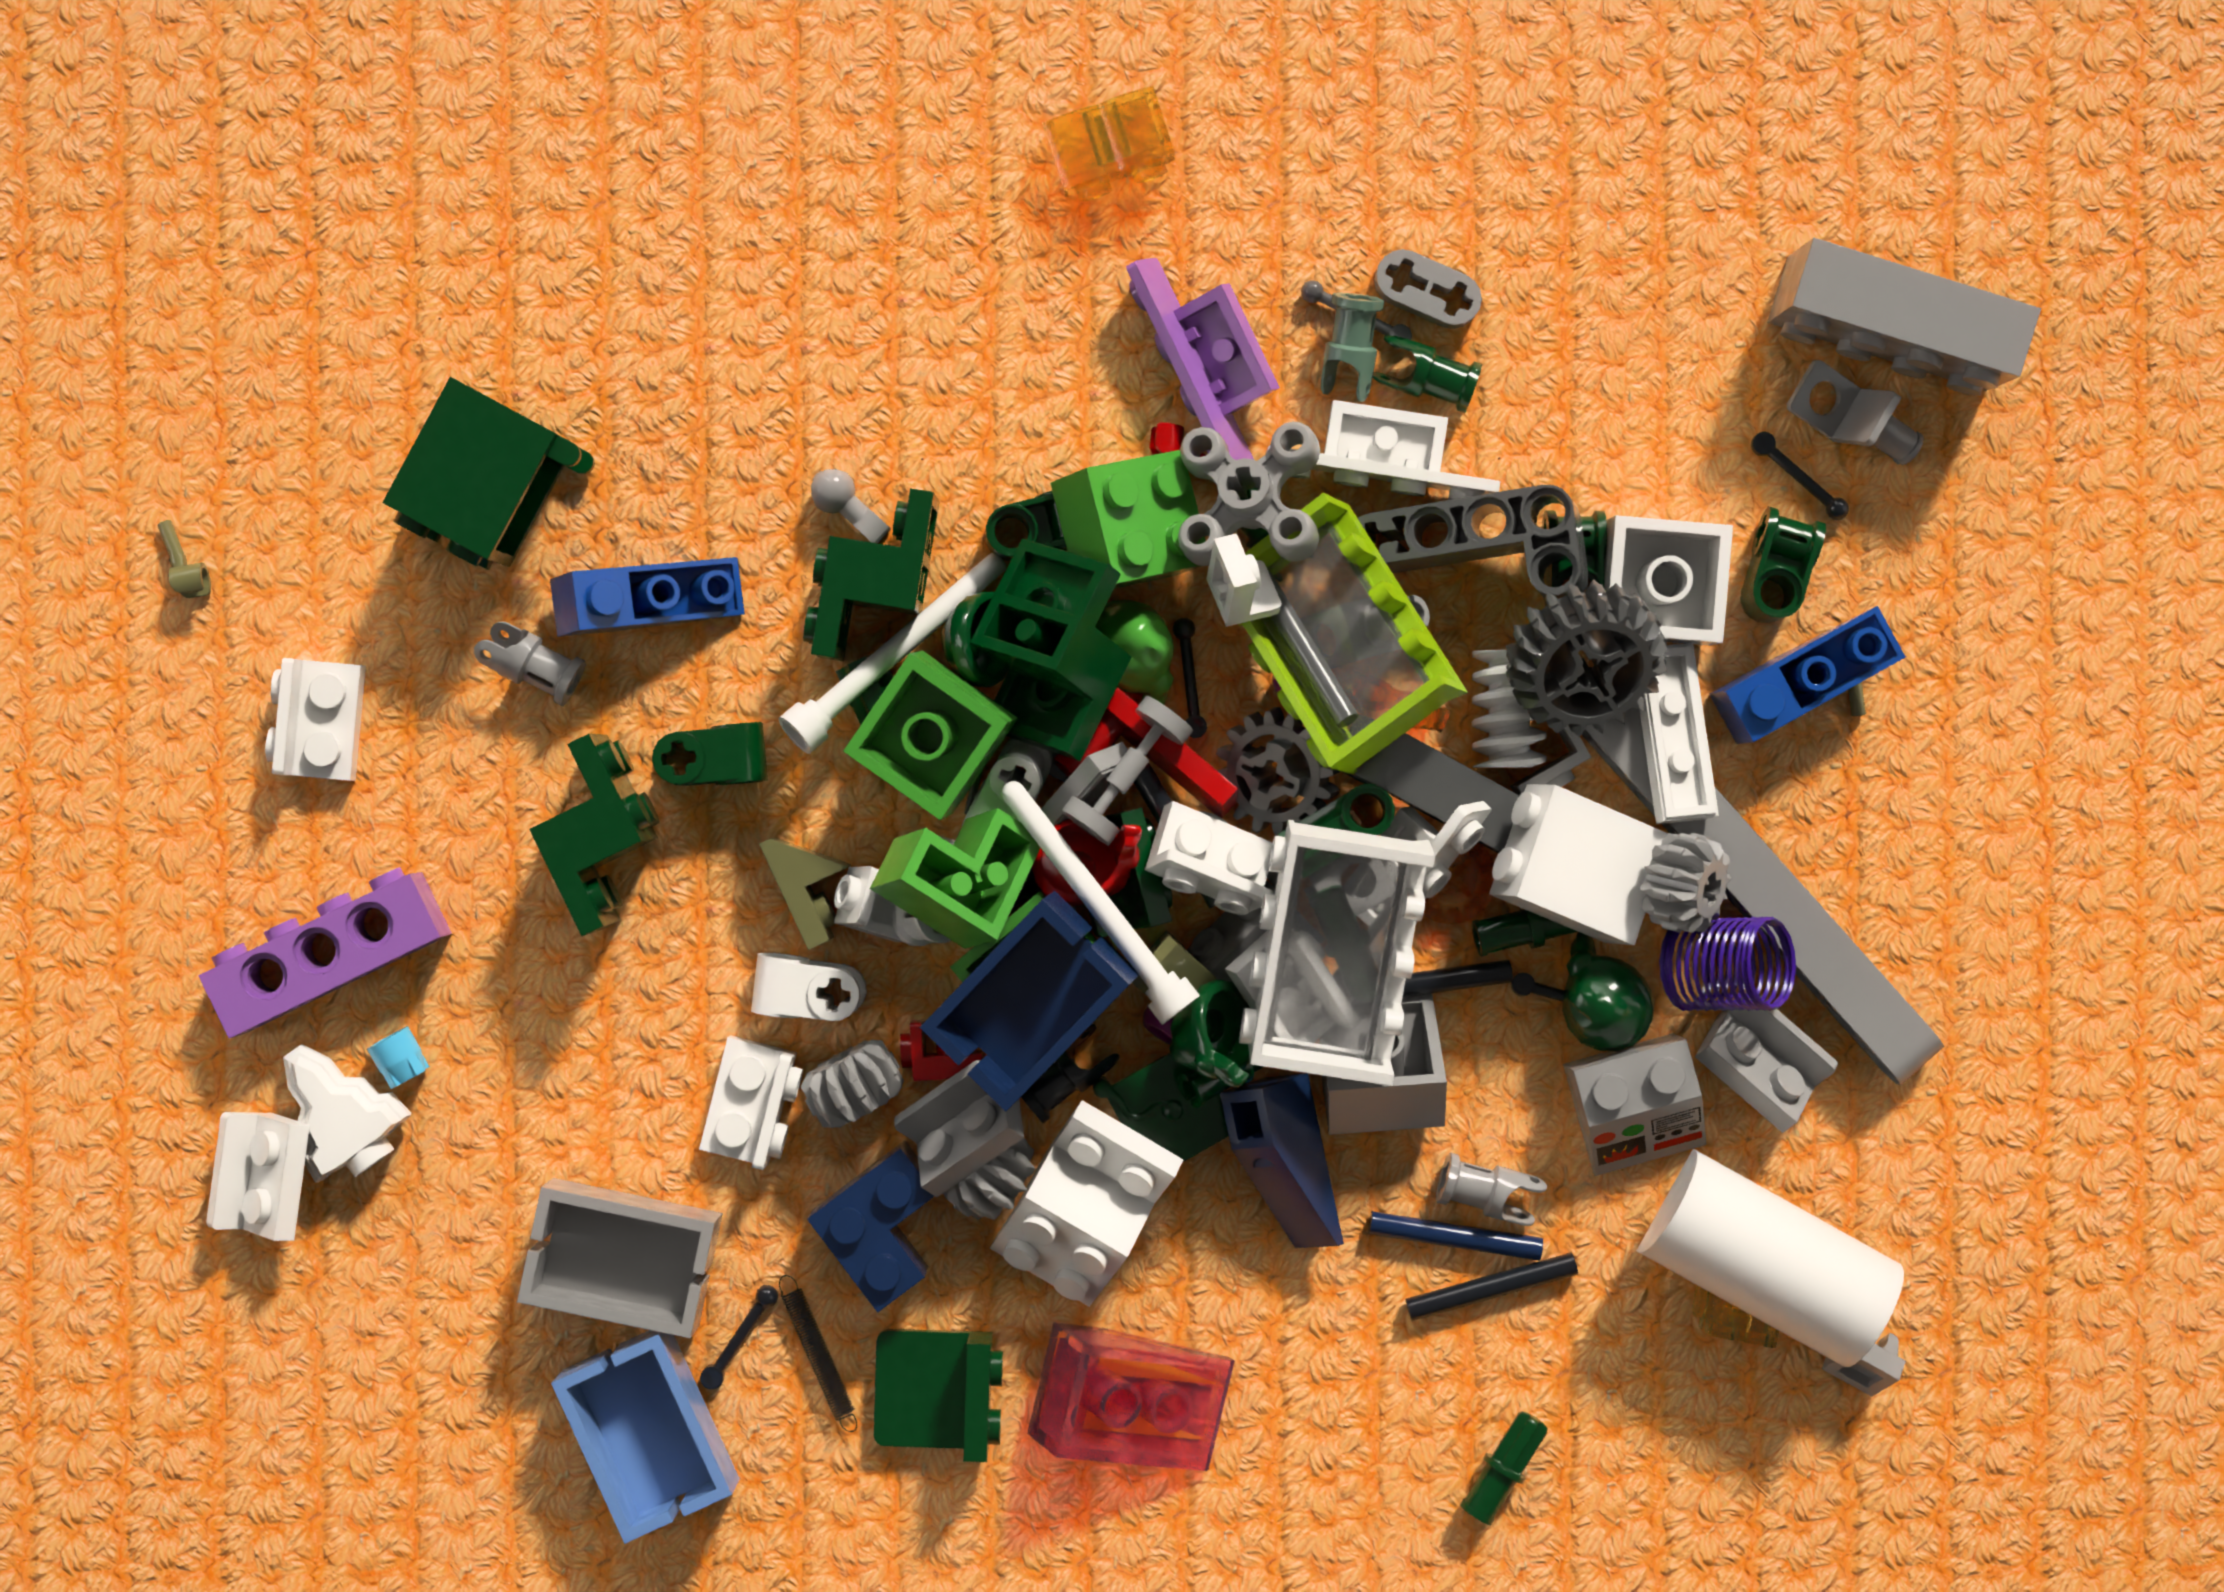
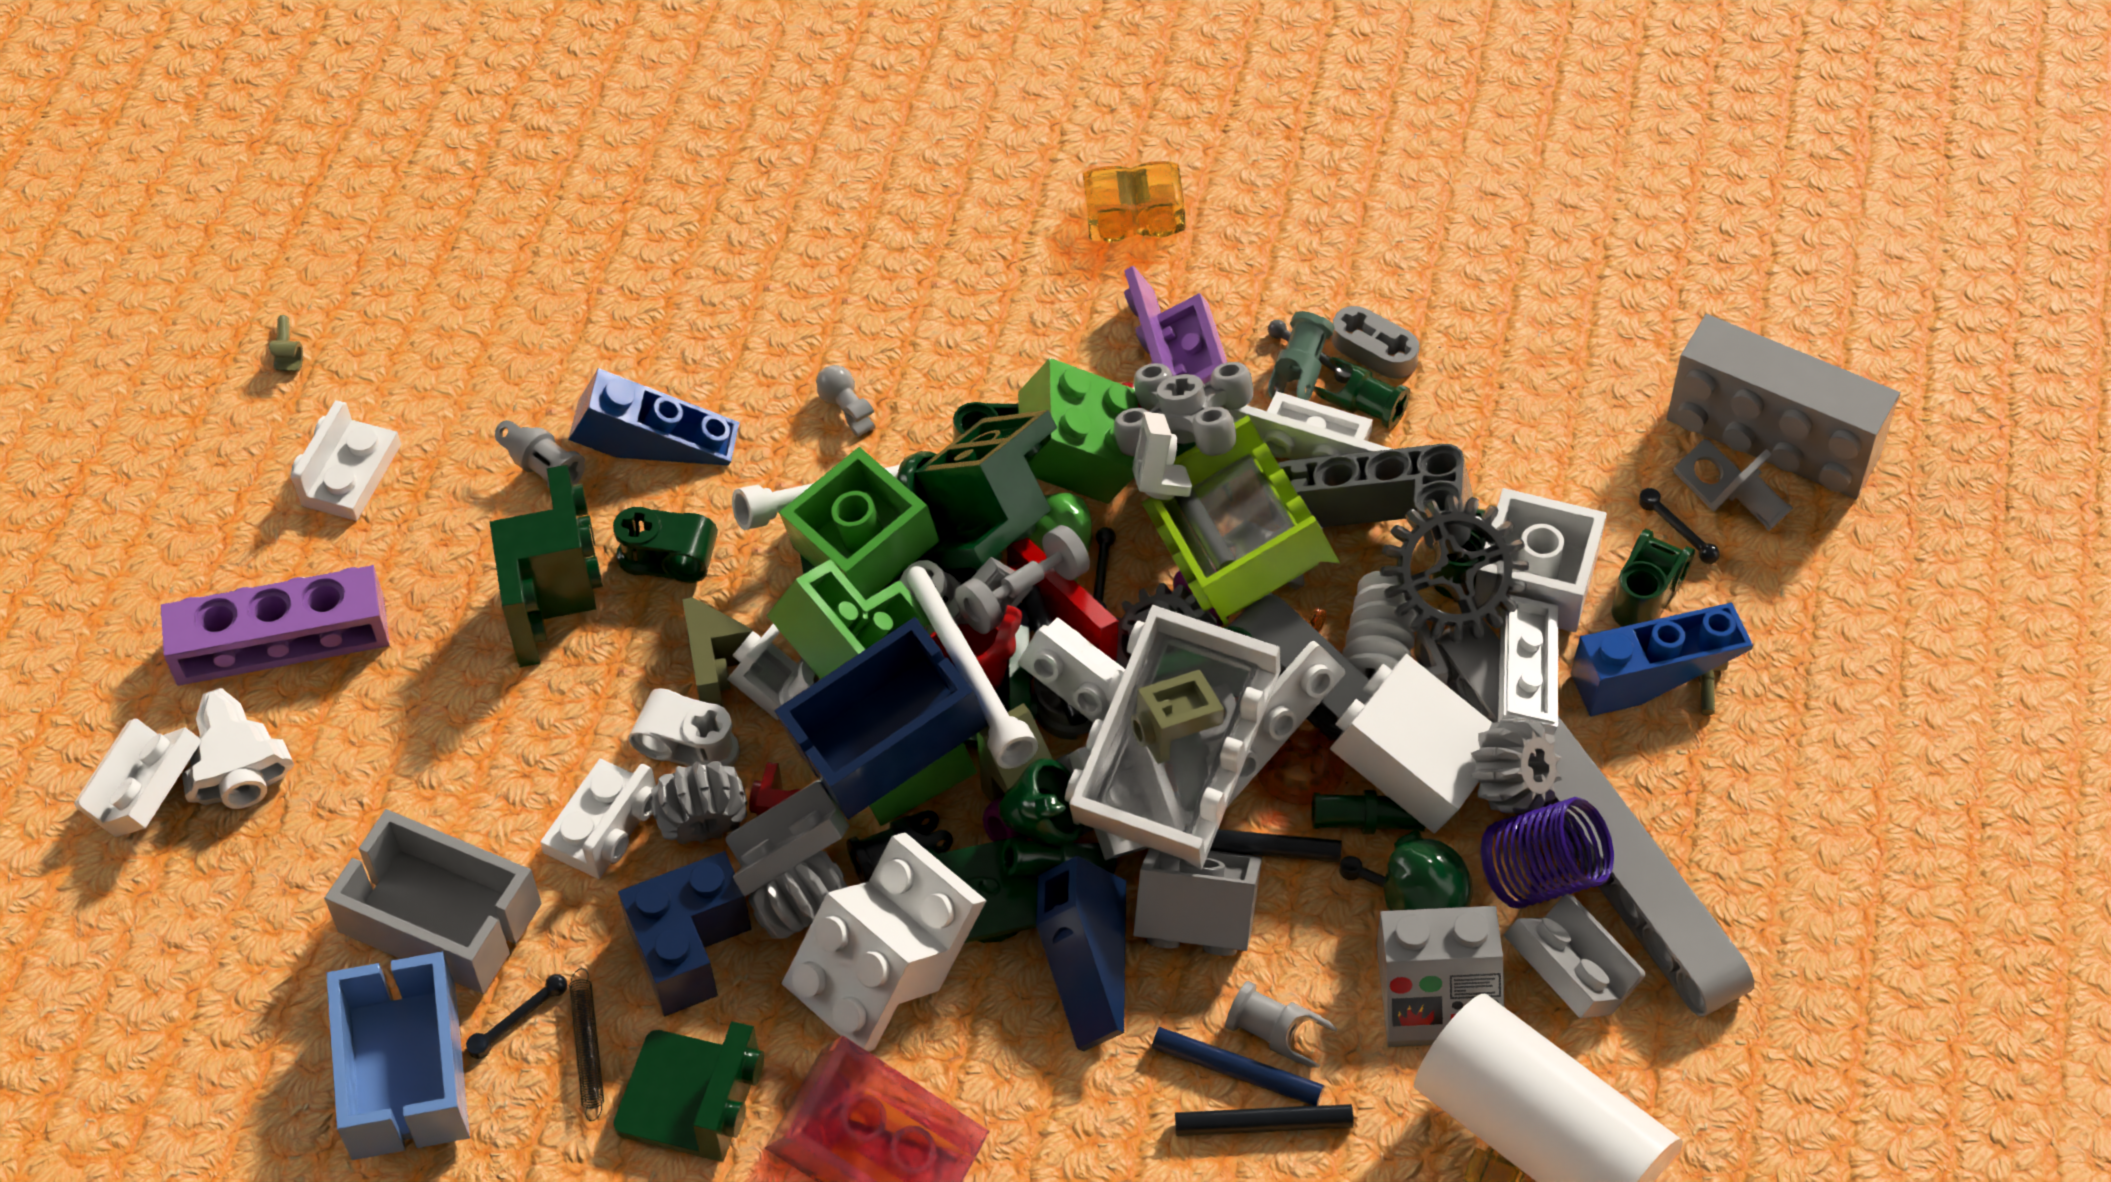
camera: 15 degrees right, 35 degrees down
(398, 1057) = (302, 717): medium azure hose -> none
(479, 476) = (552, 308): dark green container -> none
(872, 575) = (845, 414): dark green bracket -> none
(1341, 949) = (1174, 711): none -> olive bracket

